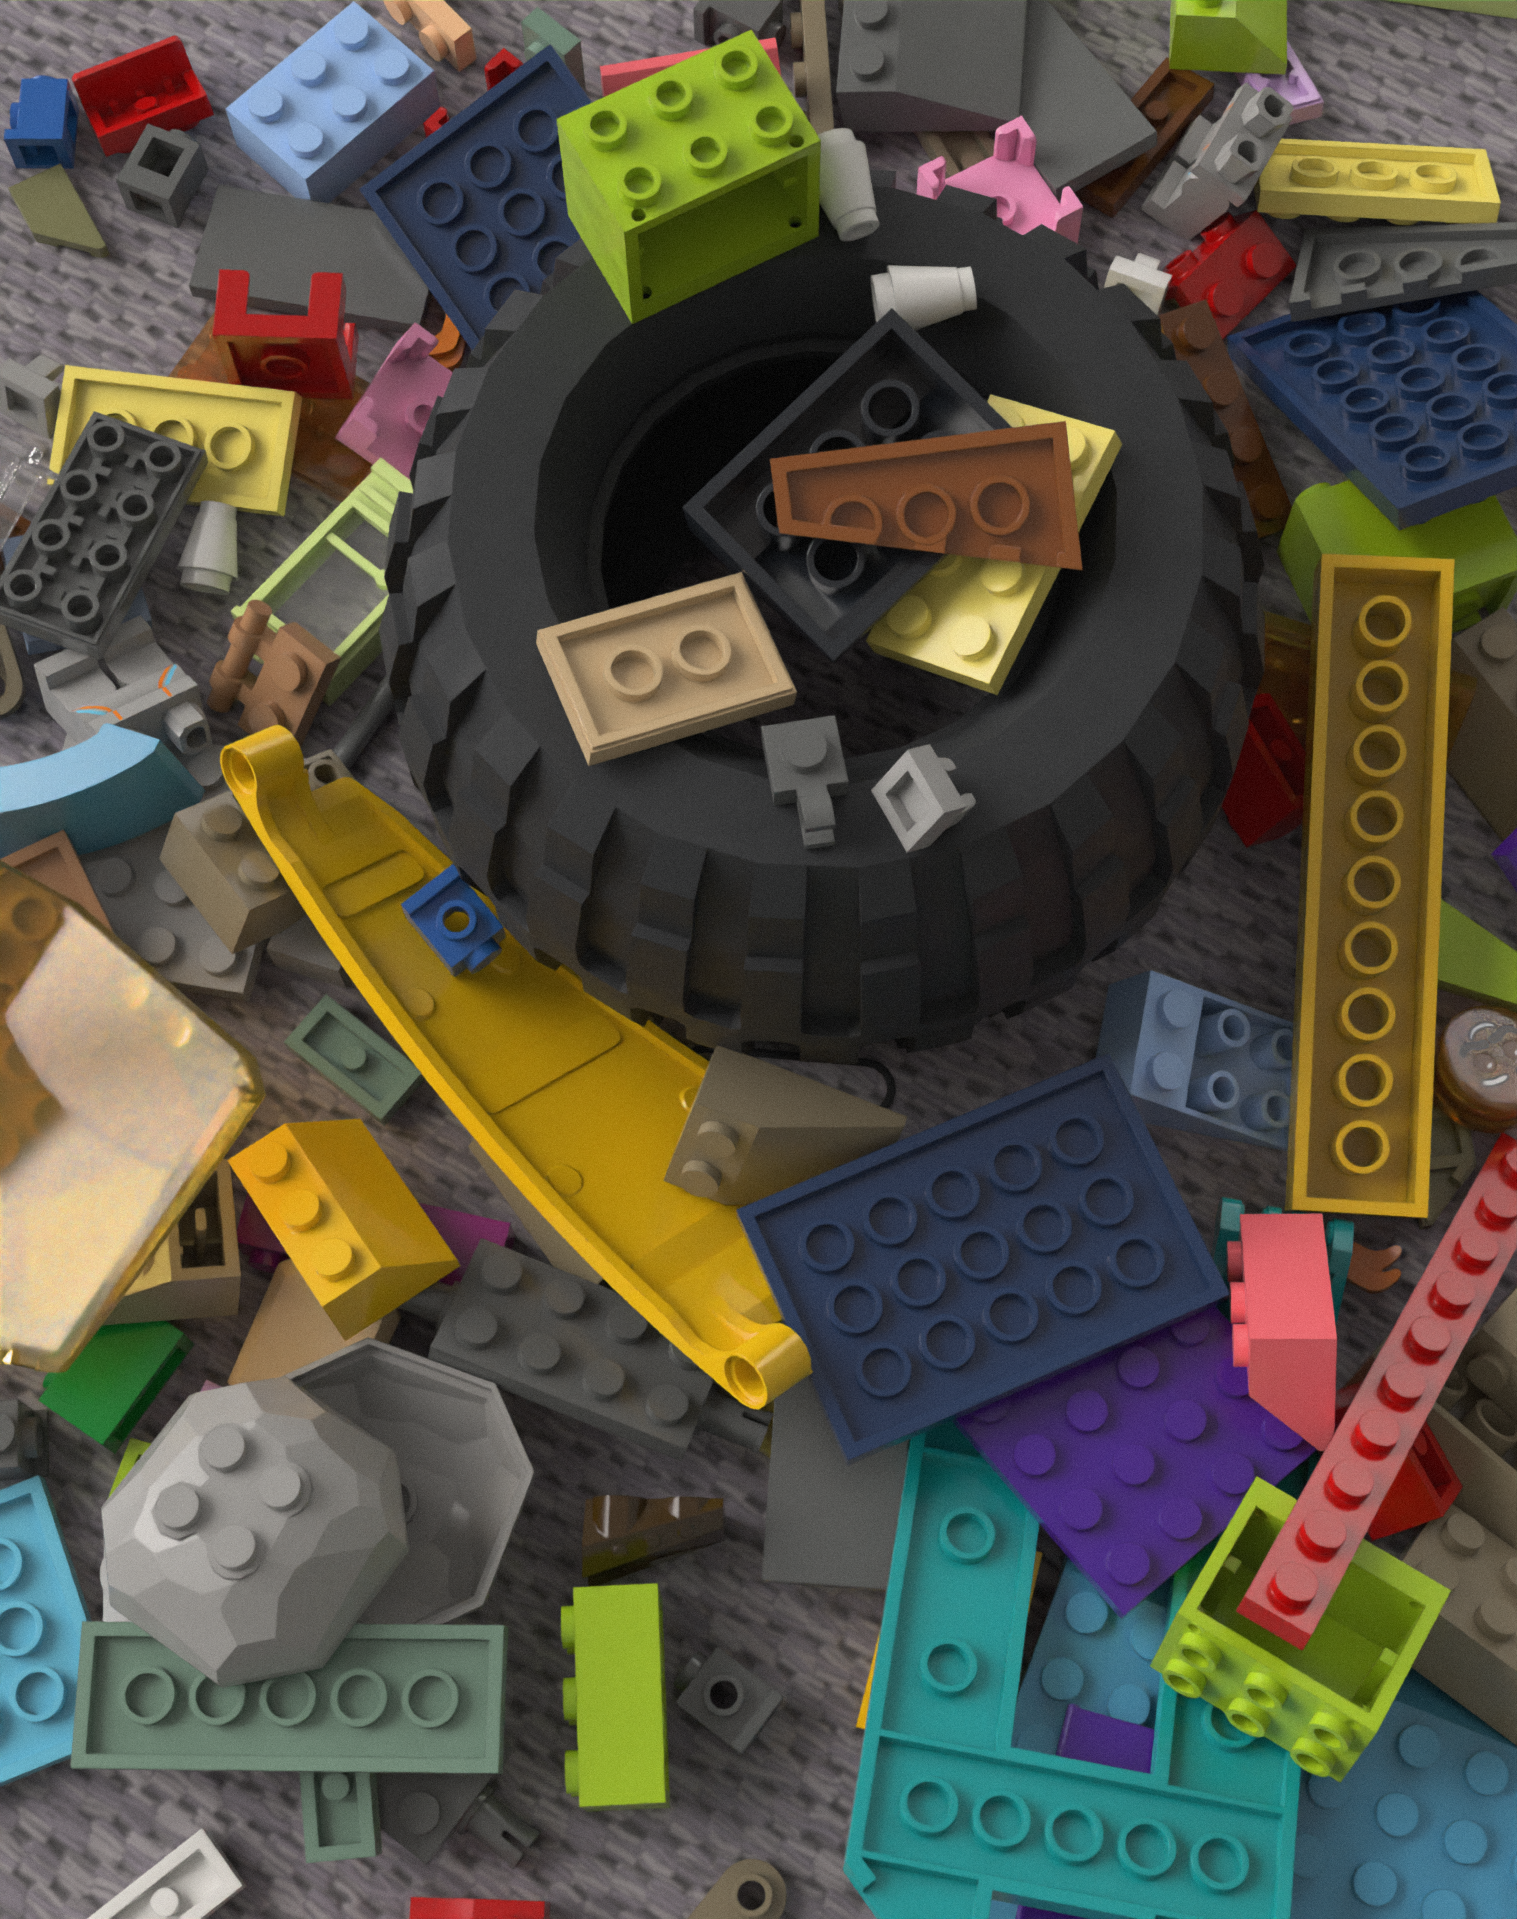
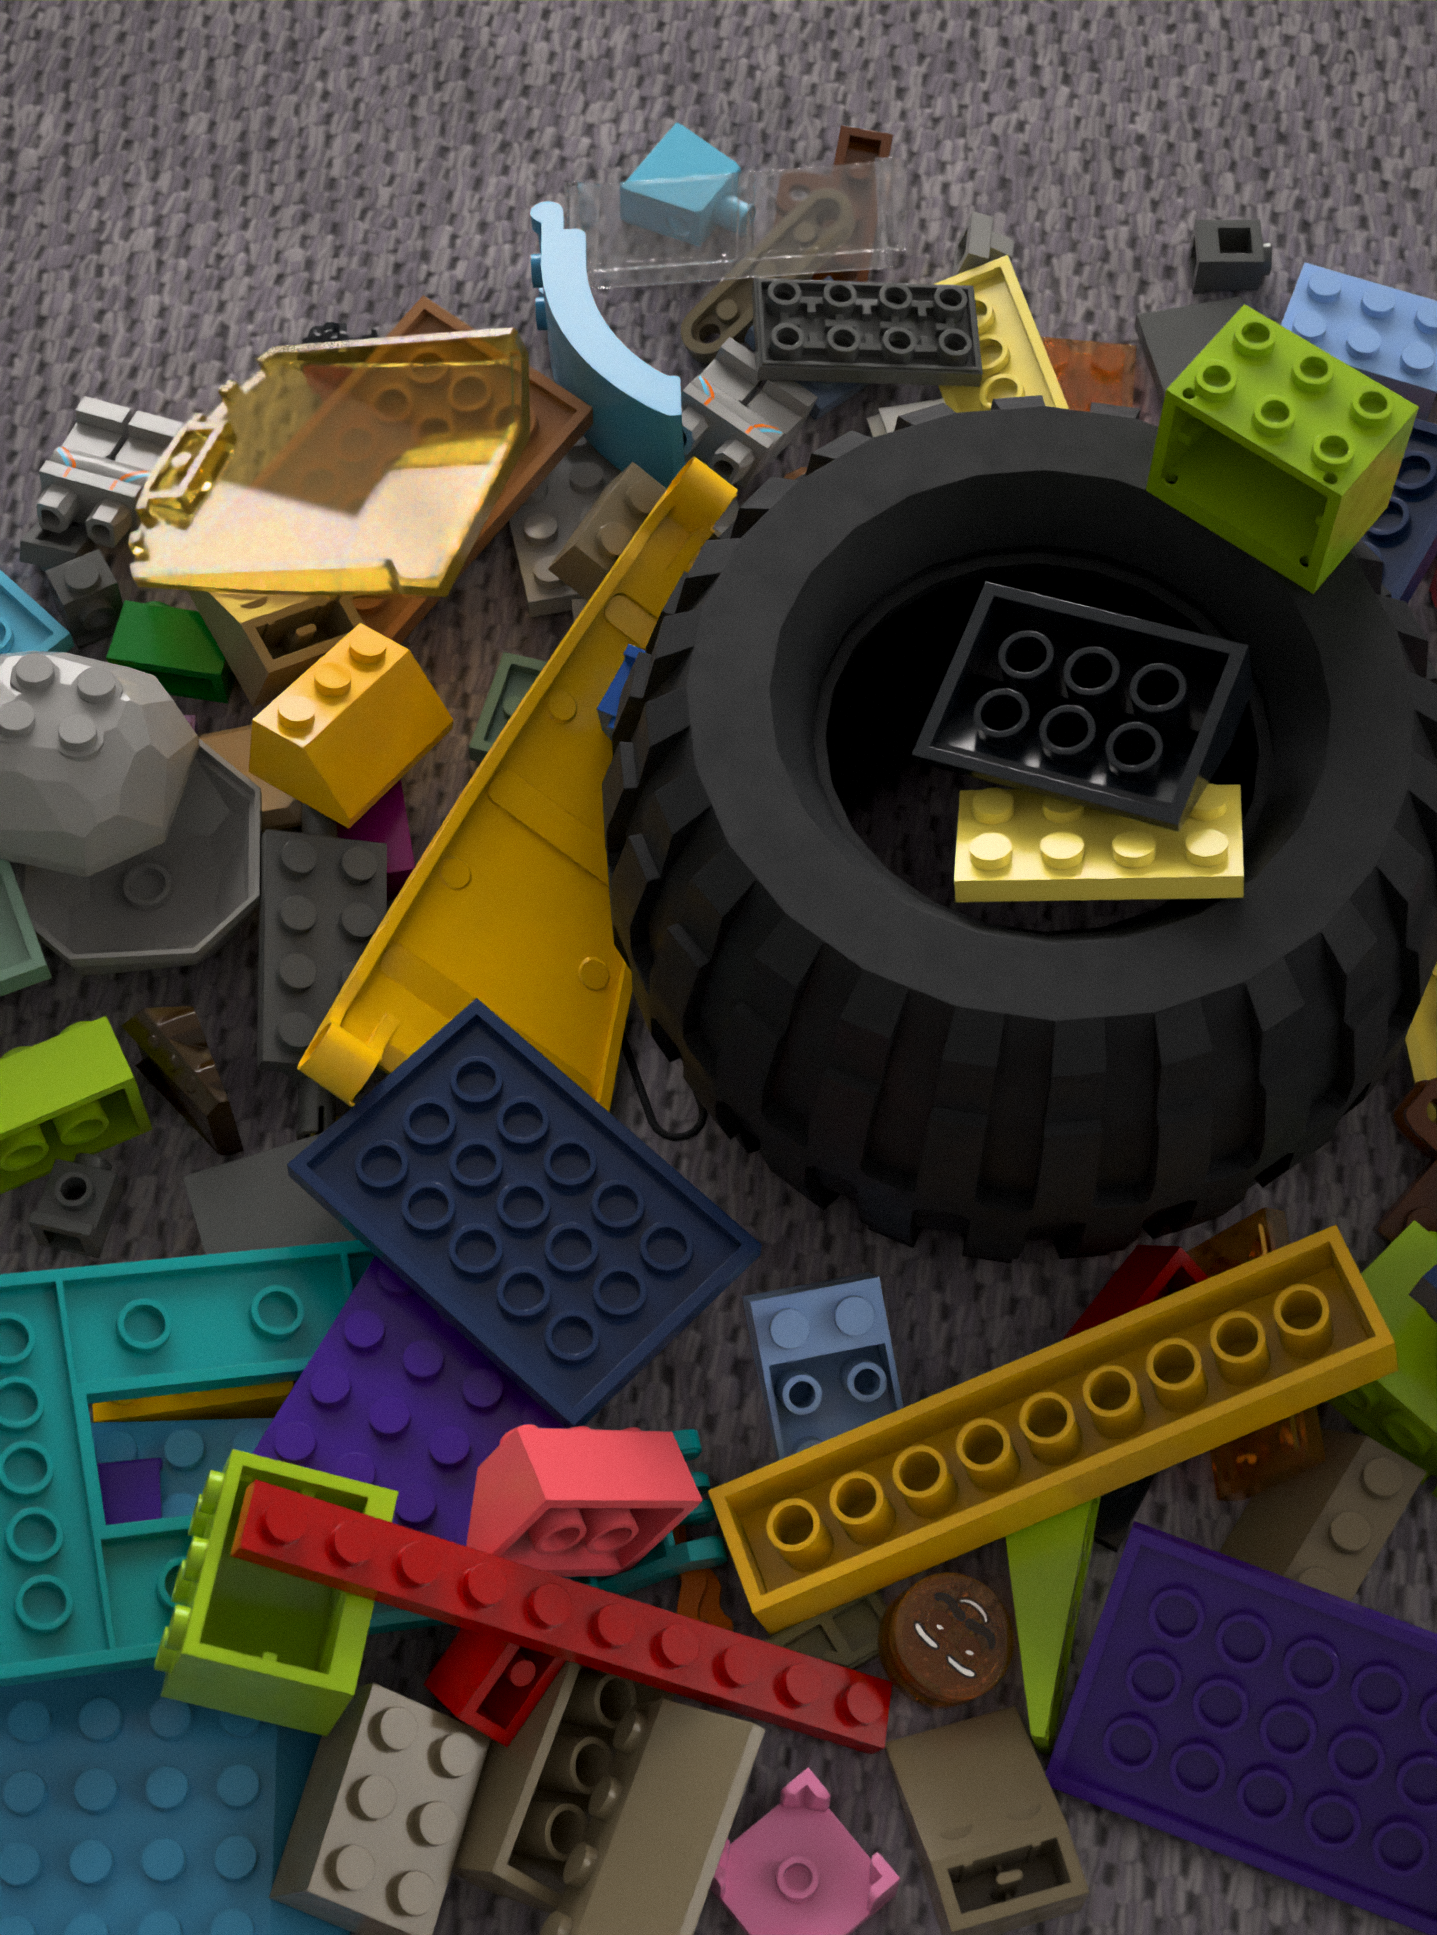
camera: 65 degrees right, 10 degrees down
(43, 124) = (1223, 159): blue brick -> none
(56, 212) = (1153, 205): olive tile -> none
(141, 89) = (1294, 211): red bracket -> none
(287, 350) = (1093, 372): red panel -> none
(665, 668) = (837, 633): tan tile -> none
(769, 1130) = (562, 997): dark tan slope -> none
(807, 769) = (790, 763): dark grey plate -> none
(846, 185) = (1367, 579): white cone -> none
(921, 797) = (803, 852): light grey tile -> none
(923, 293) = (1294, 684): white cone -> none
(954, 495) = (1101, 768): dark orange wing -> none

